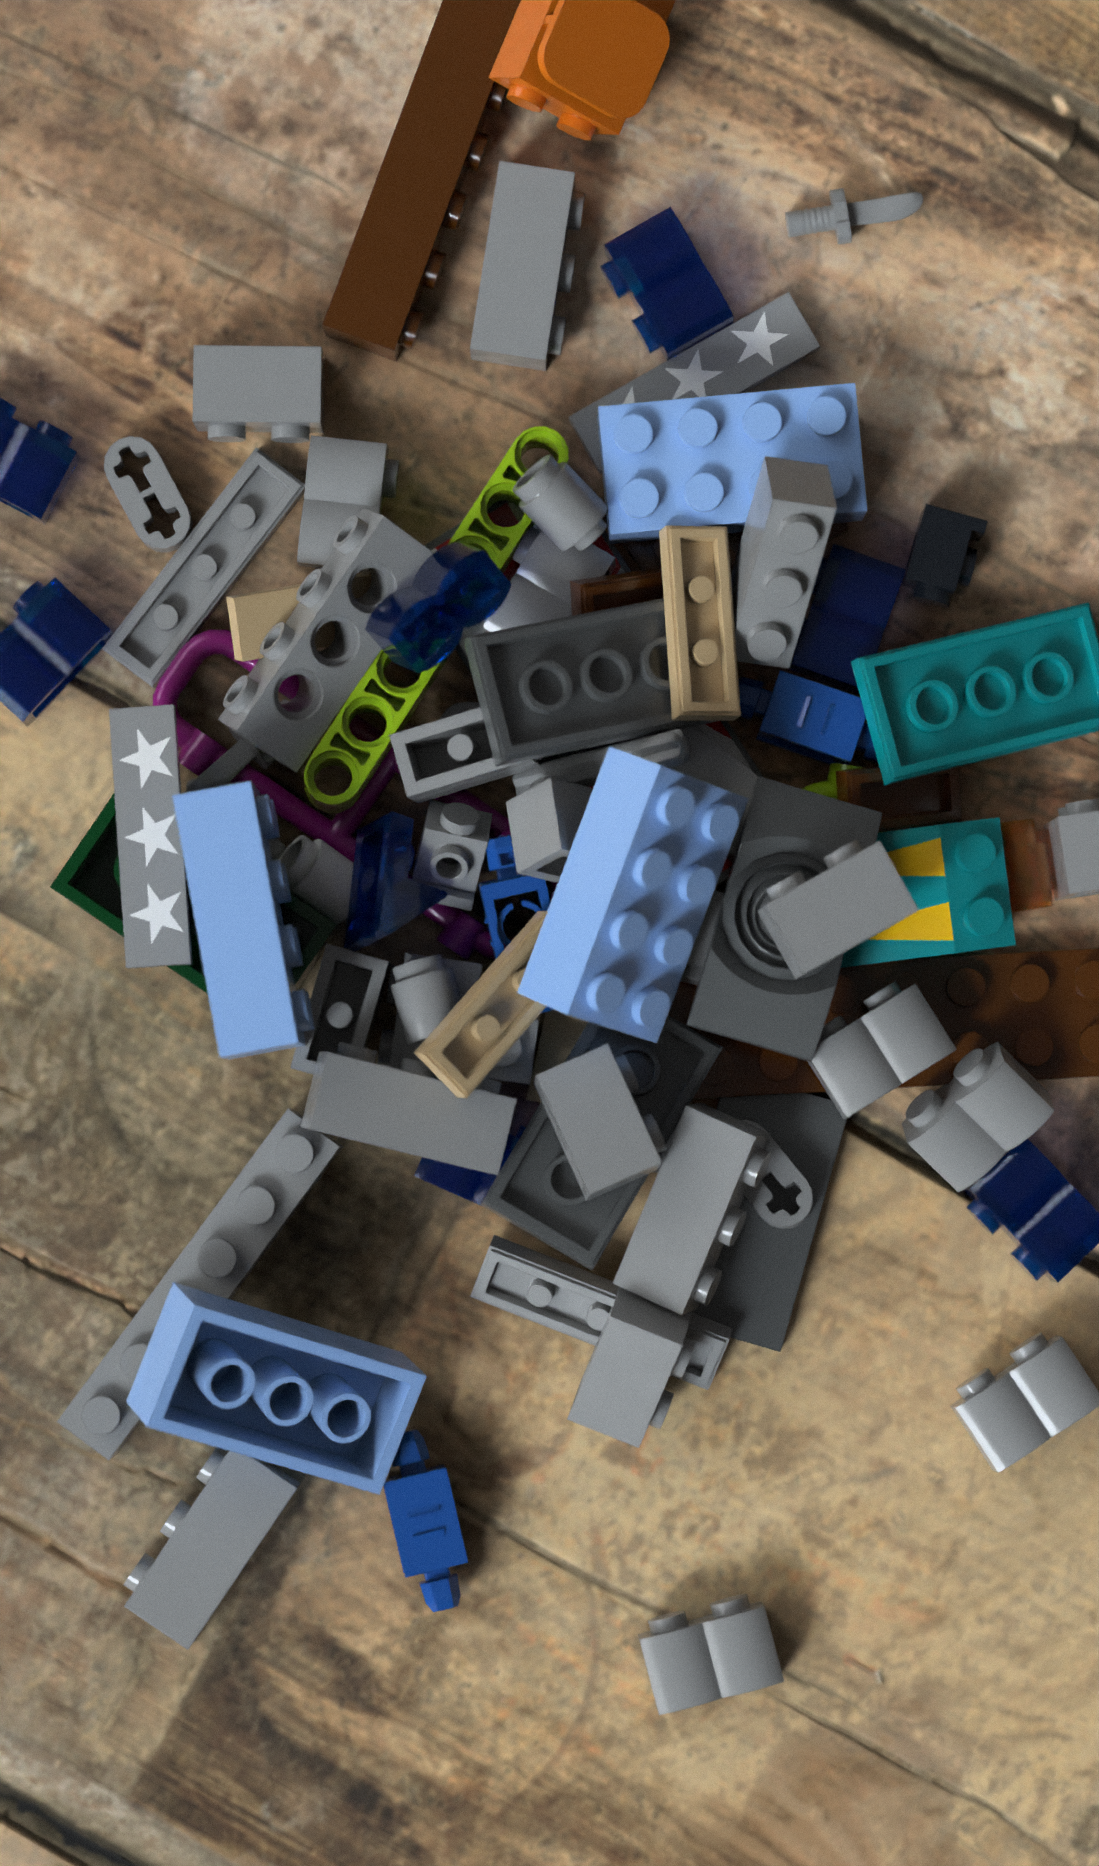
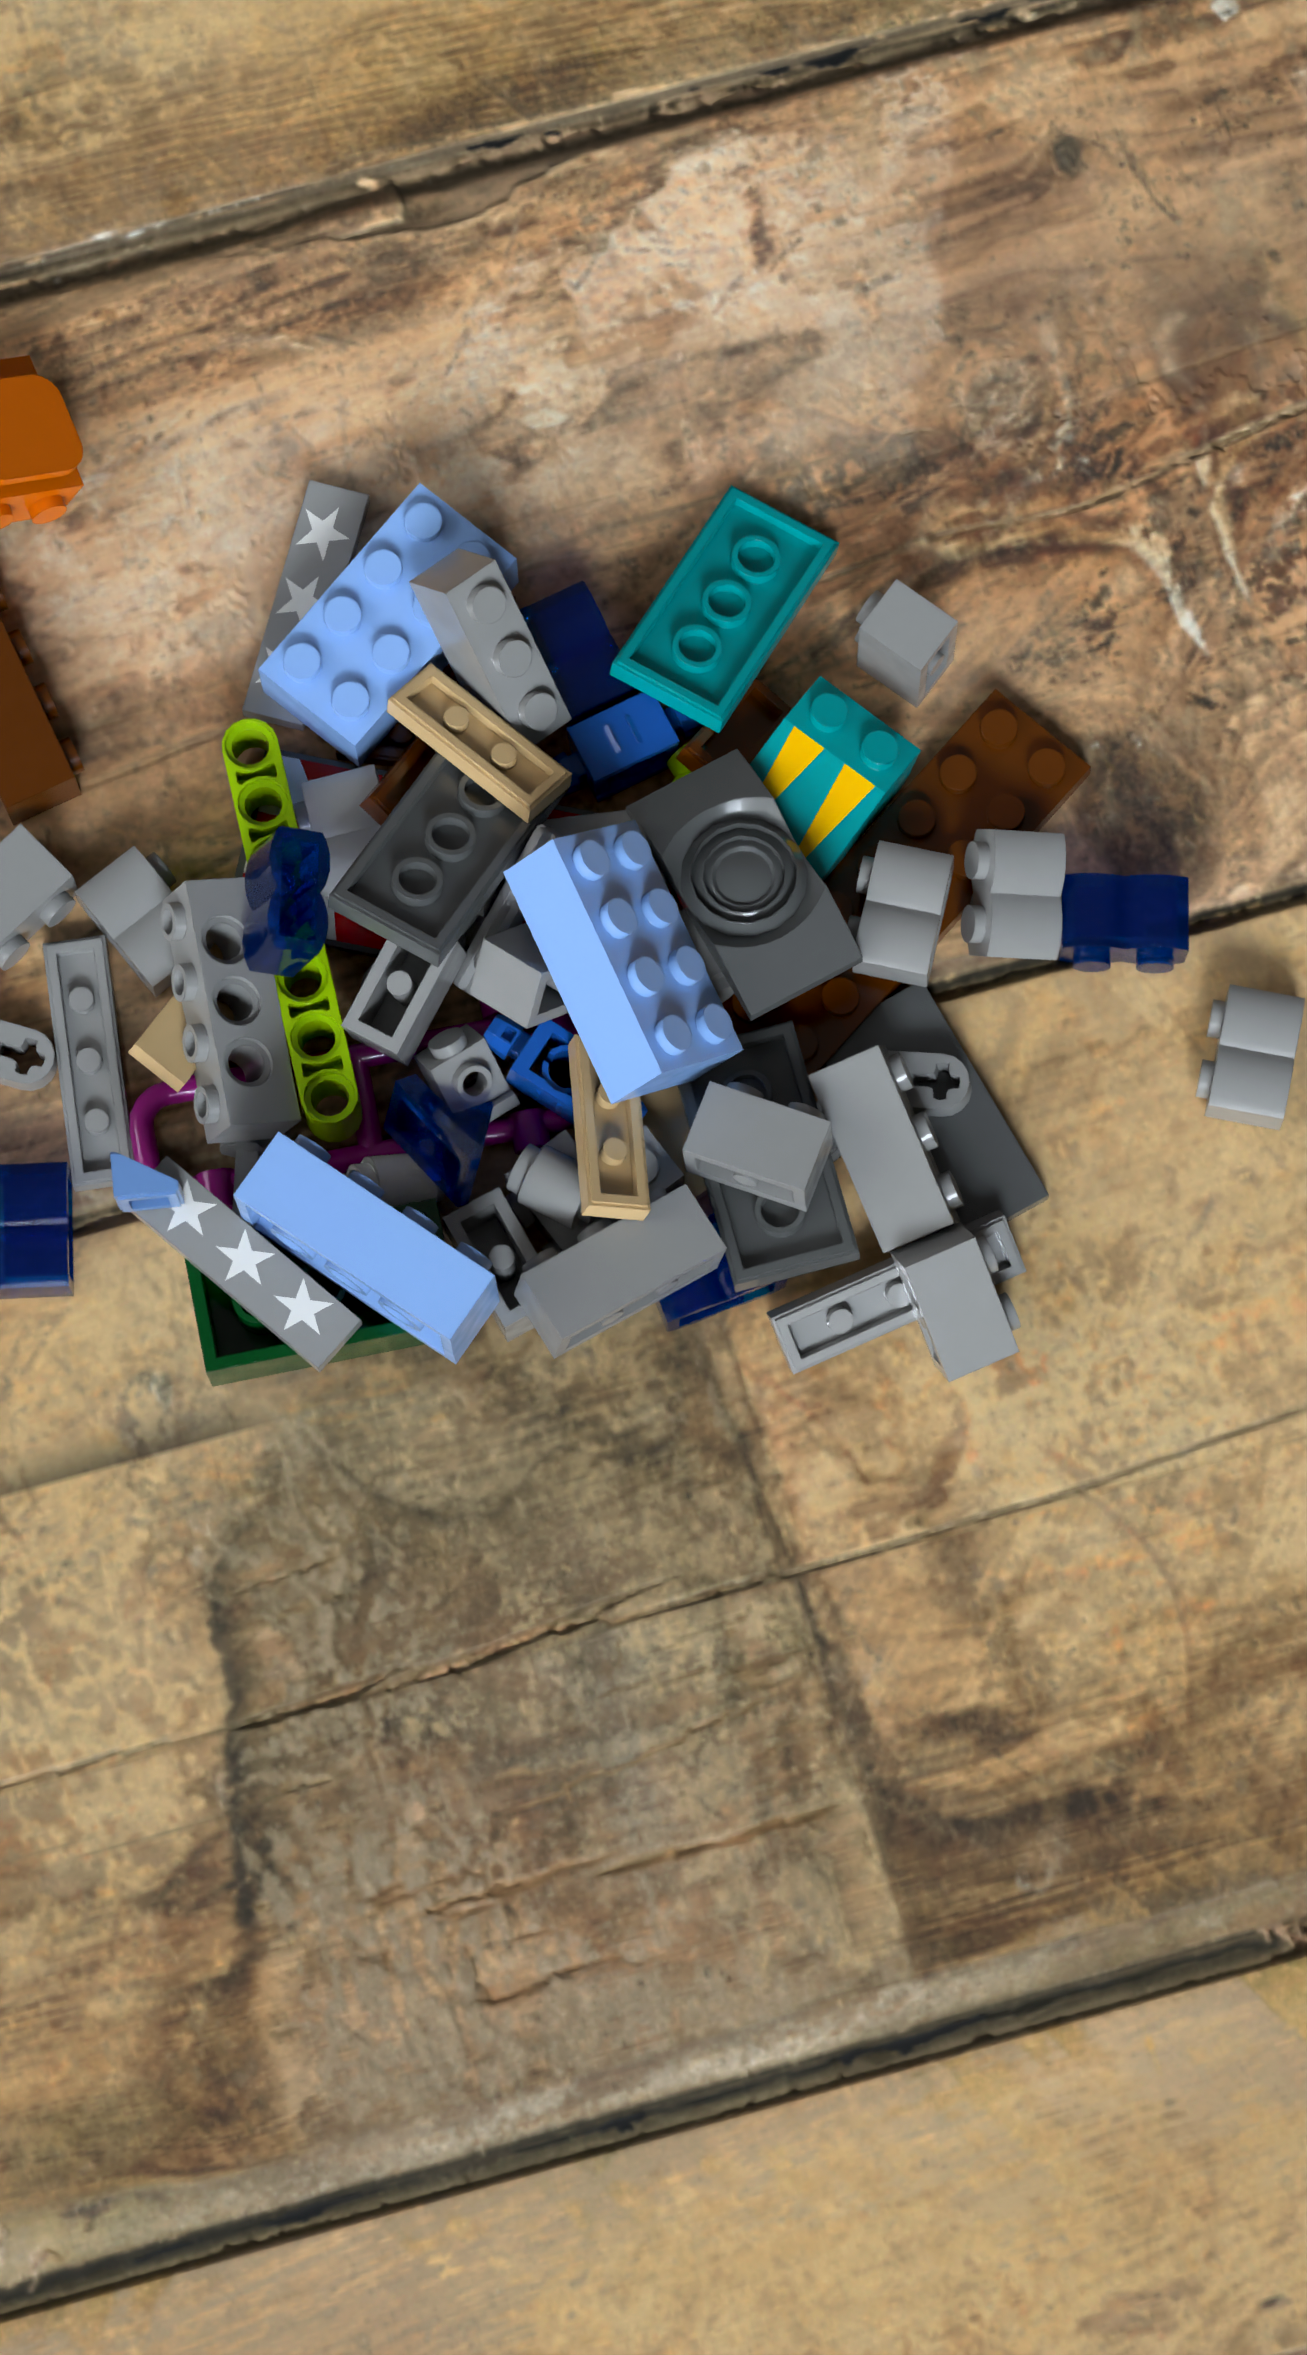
camera: 45 degrees left, 10 degrees down
(125, 711) = (141, 1187): none -> medium blue slope
(208, 1544) = (787, 1727): light grey brick -> none
(213, 1262) = (594, 1551): light grey brick -> none
(275, 1389) = (722, 1556): light blue brick -> none
(425, 1522) = (922, 1557): blue piece -> none
(526, 266) = (108, 637): light grey brick -> none
(561, 504) = (300, 757): light grey brick -> none
(666, 284) = (219, 556): clear blue brick -> none
(709, 1655) = (1218, 1450): light grey brick -> none
(836, 908) = (773, 828): light grey brick -> none
(842, 215) = (294, 397): light grey piece -> none
(942, 554) = (596, 549): black brick -> none
(1028, 865) = (876, 694): clear orange brick -> none

